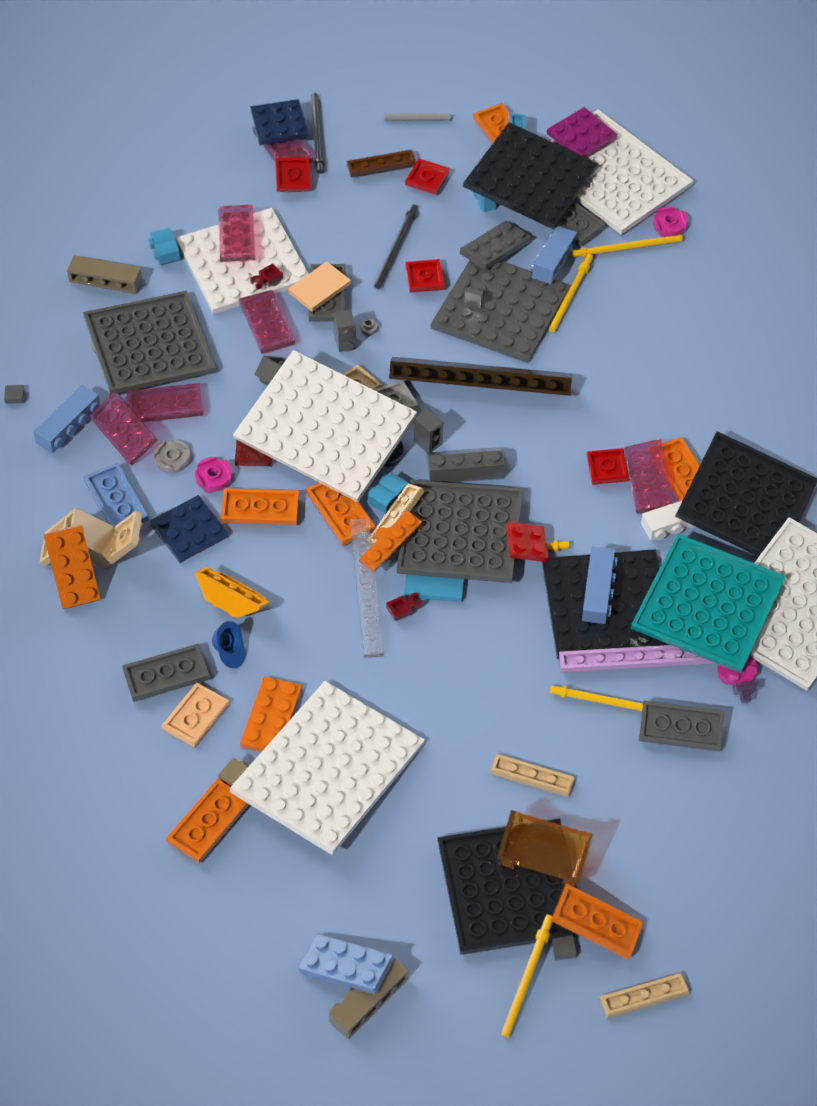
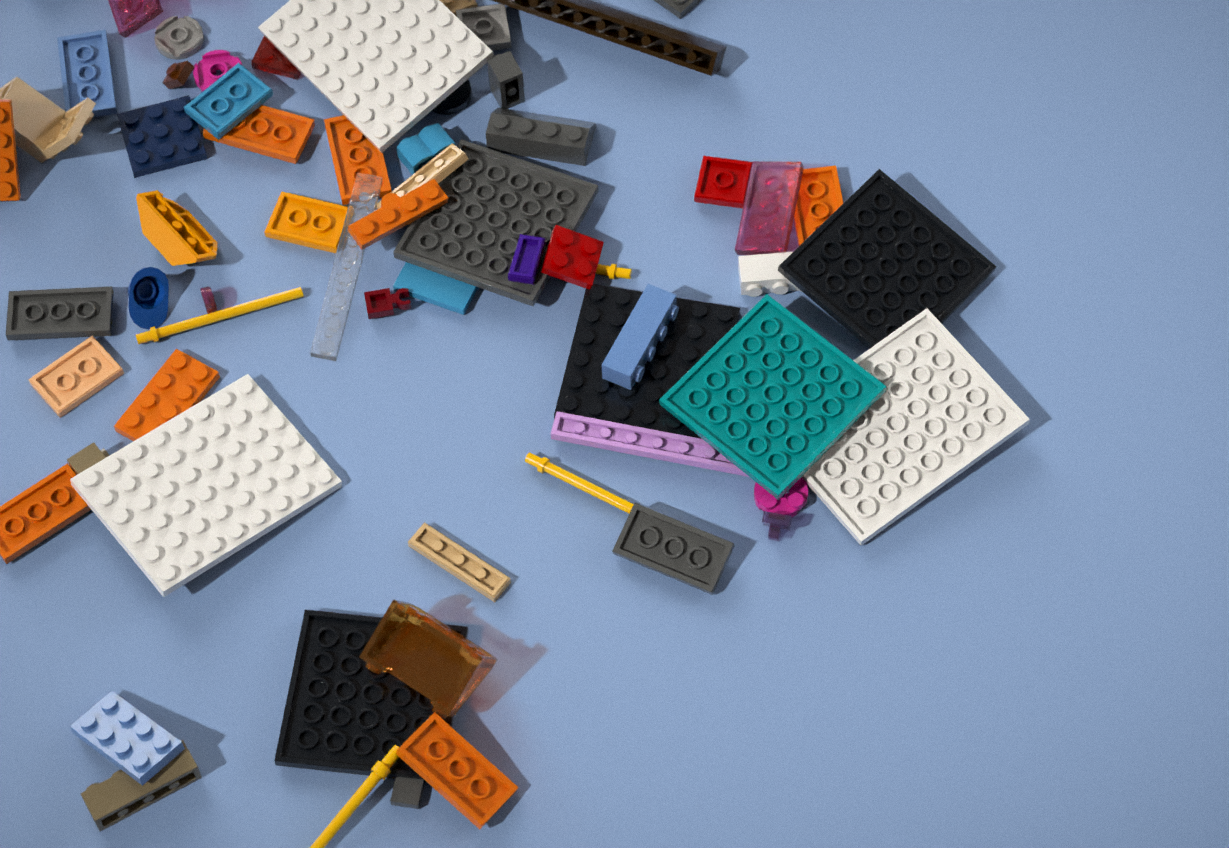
camera: 20 degrees right, 5 degrees up
(184, 482) = (177, 74): none -> reddish brown plate
(231, 491) = (228, 101): none -> dark azure tile
(243, 669) = (156, 333): none -> yellow bar
(273, 636) = (208, 299): none -> clear pink tile
(323, 564) = (307, 222): none -> light orange tile
(496, 551) = (526, 259): none -> dark purple tile

